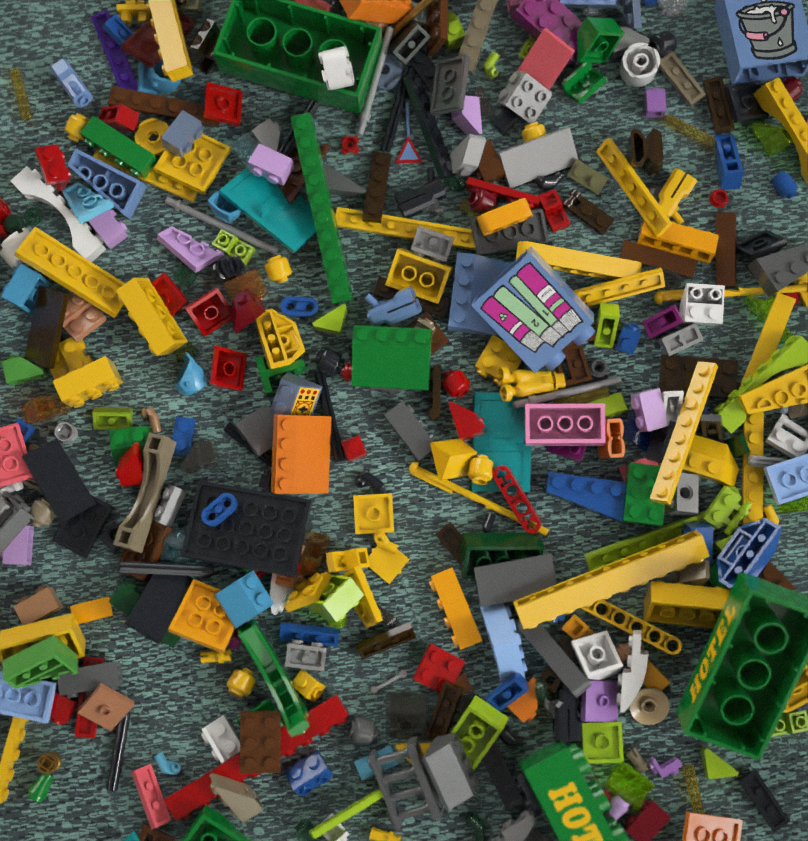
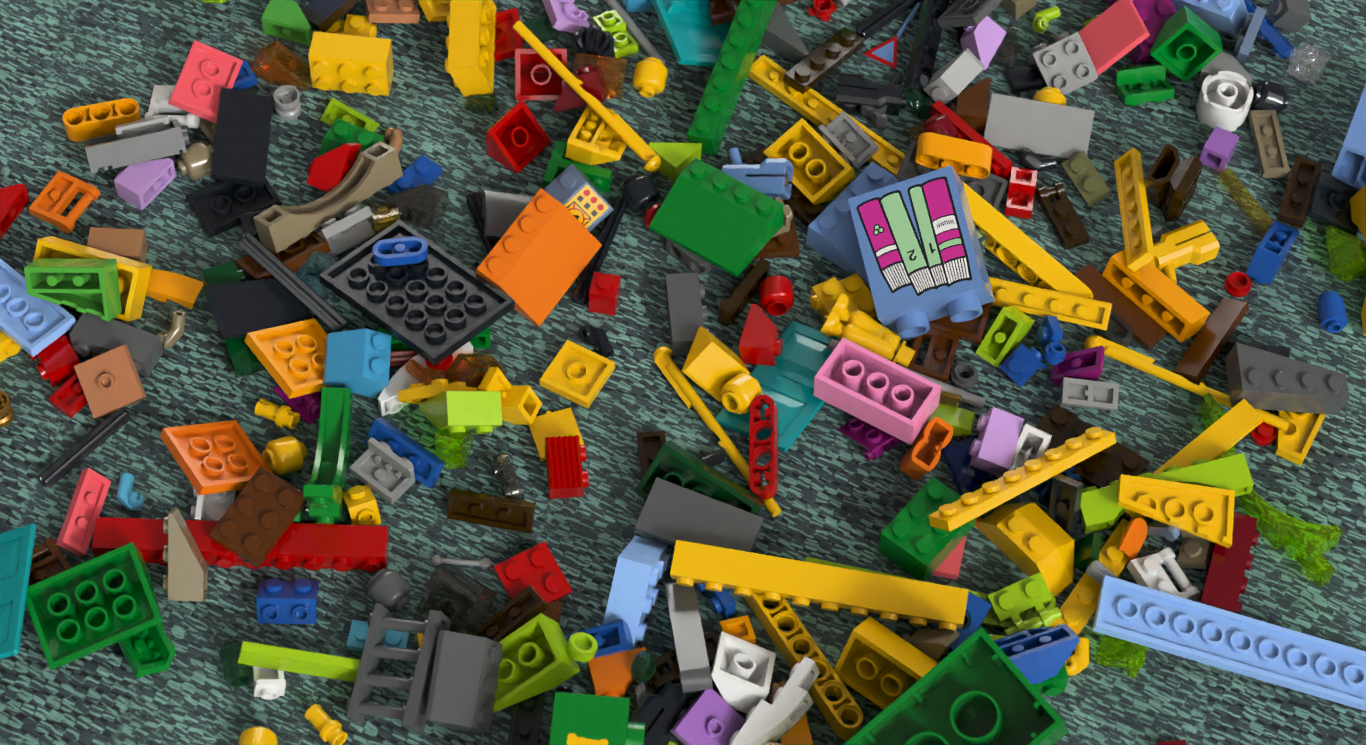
camera: 25 degrees right, 25 degrees down
(116, 641) = (176, 331): none -> dark tan arm
(188, 481) = (384, 218): none -> clear yellow tile
(190, 377) = (469, 122): dark azure helmet -> none
(205, 715) = (214, 455): none -> orange plate
(285, 324) = (616, 123): none -> yellow bar
(300, 305) = (649, 125): blue plate -> none
(367, 607) = (496, 446): yellow wing -> none
(383, 542) = (566, 407): yellow arm -> none
(409, 584) = (564, 467): none -> red brick
(456, 609) = (602, 527): light orange brick -> none
(502, 706) = (582, 647): none -> lime tile
(592, 494) = (854, 490): blue wedge -> none
(634, 310) = (1049, 337): none -> blue plate
(688, 503) = (988, 548): light grey brick -> none
(702, 304) = (1141, 372): white slope -> none
(760, 424) = (1133, 537): none -> orange piece

